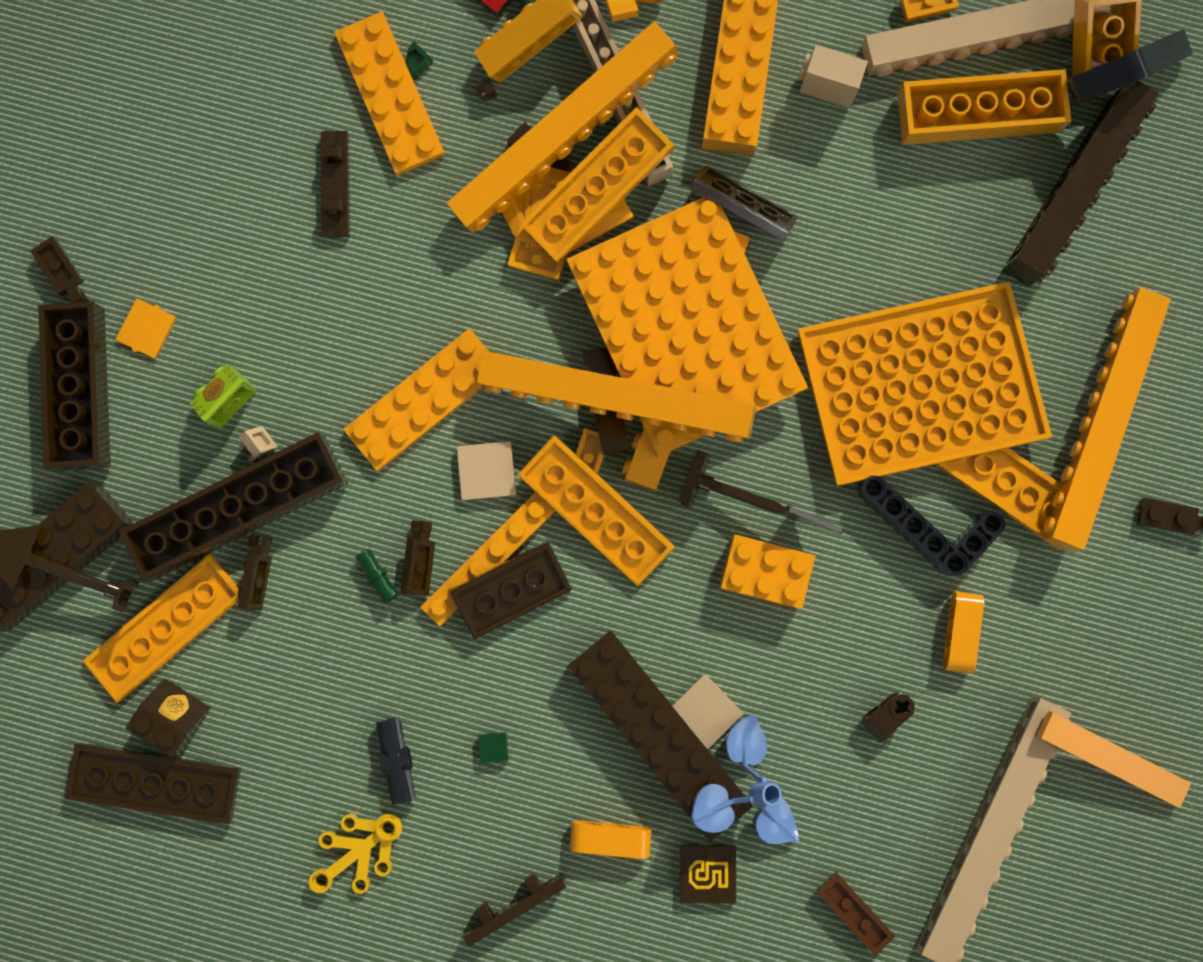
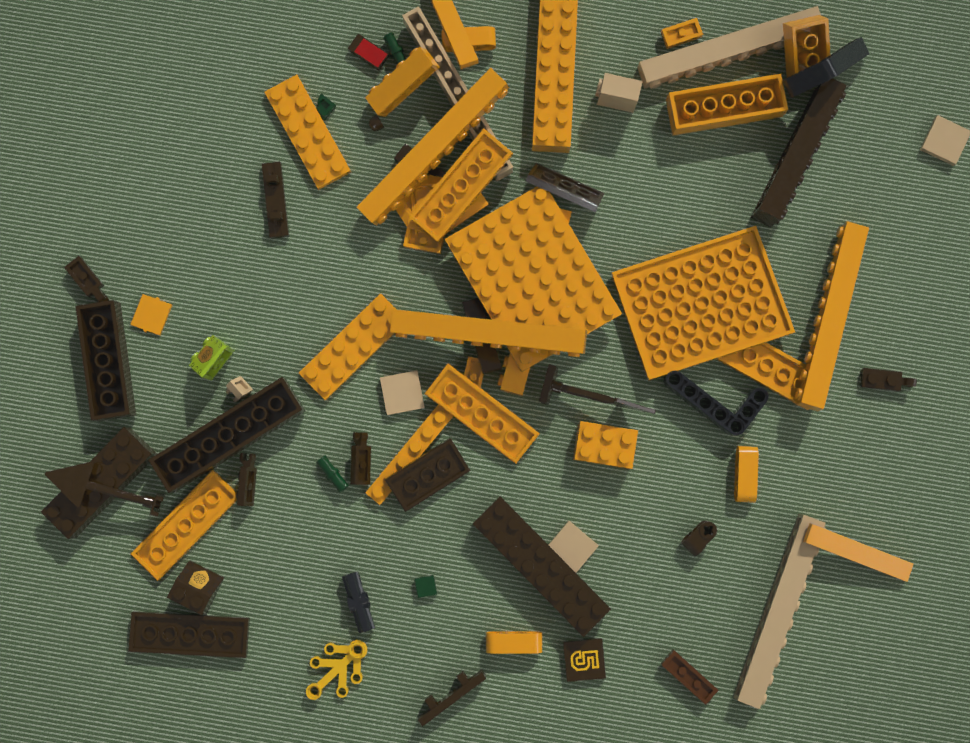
camera: 10 degrees left, 0 degrees up
(712, 806) = (583, 612): medium blue plant -> none

